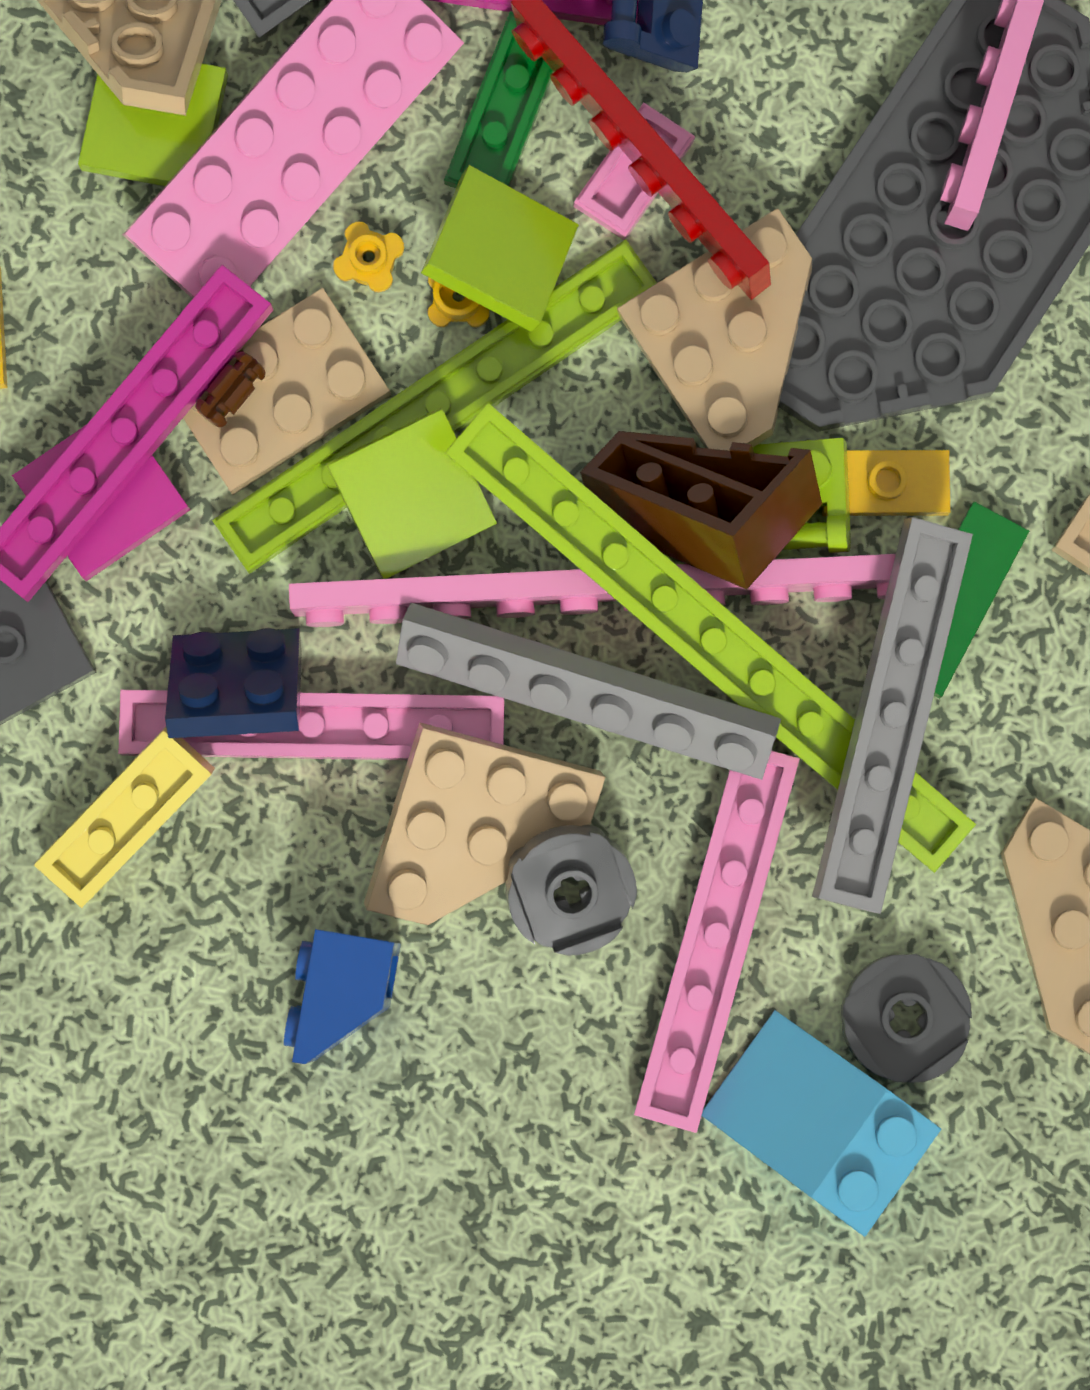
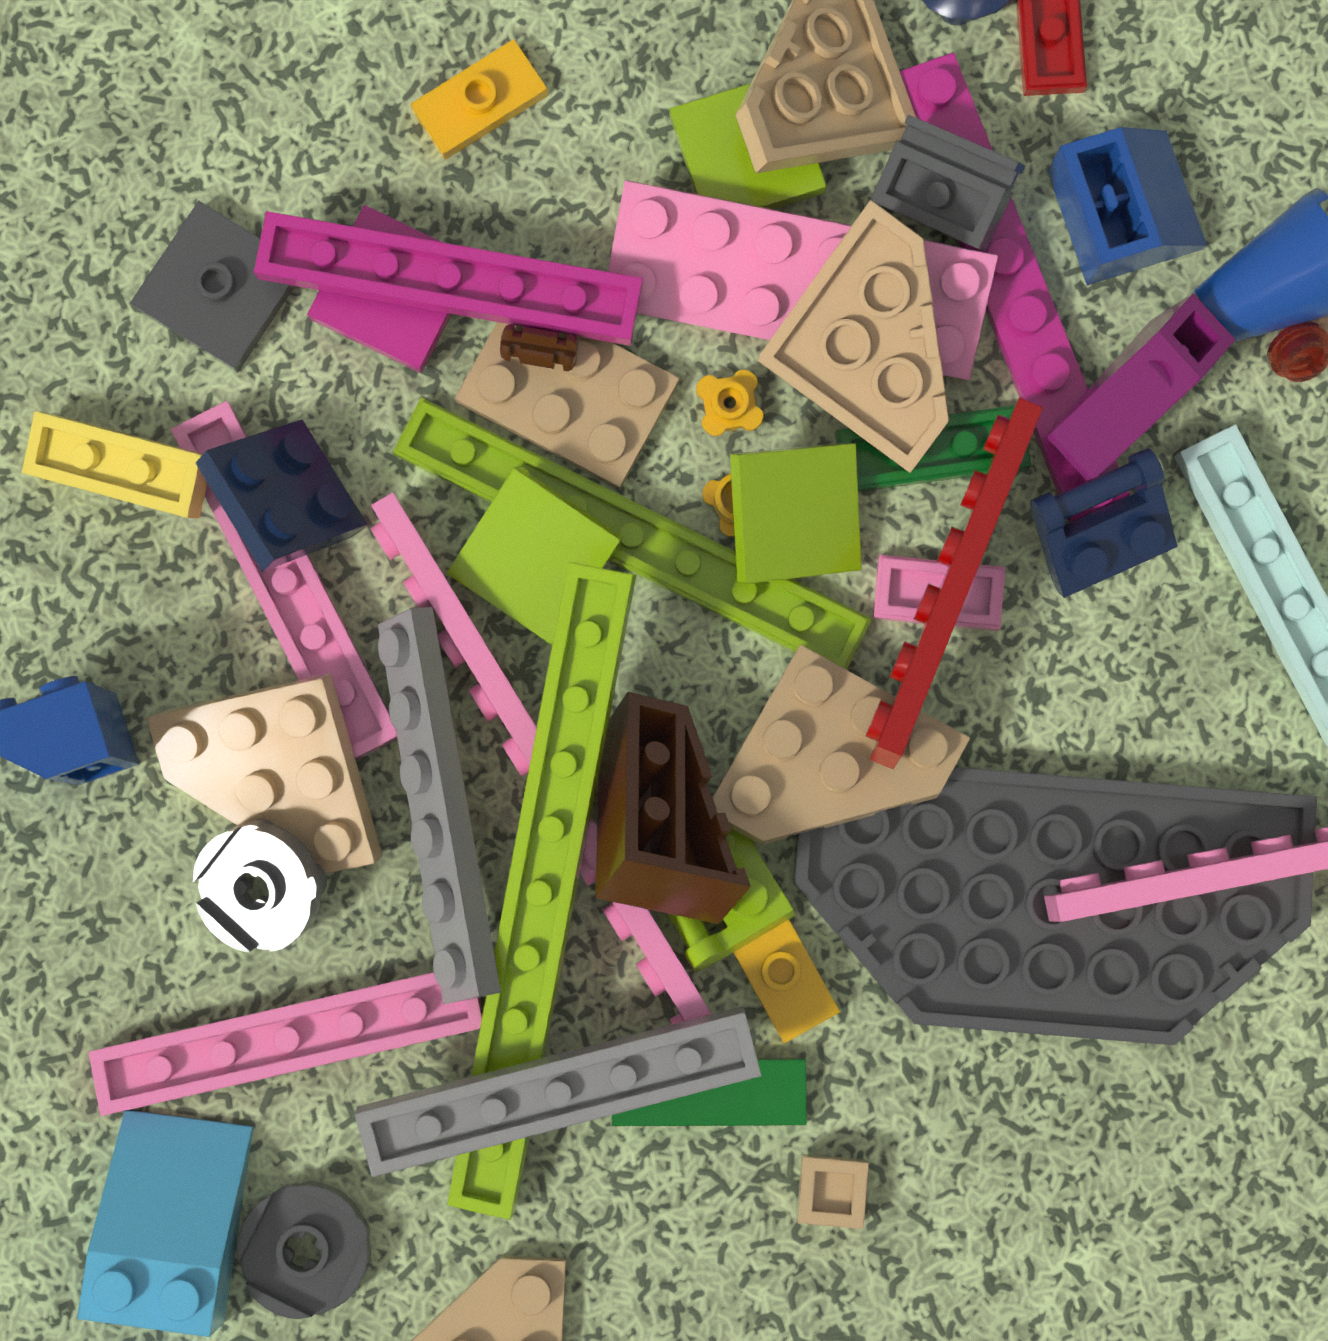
camera: 60 degrees right, 0 degrees up
(386, 100) = (869, 339): none -> tan plate

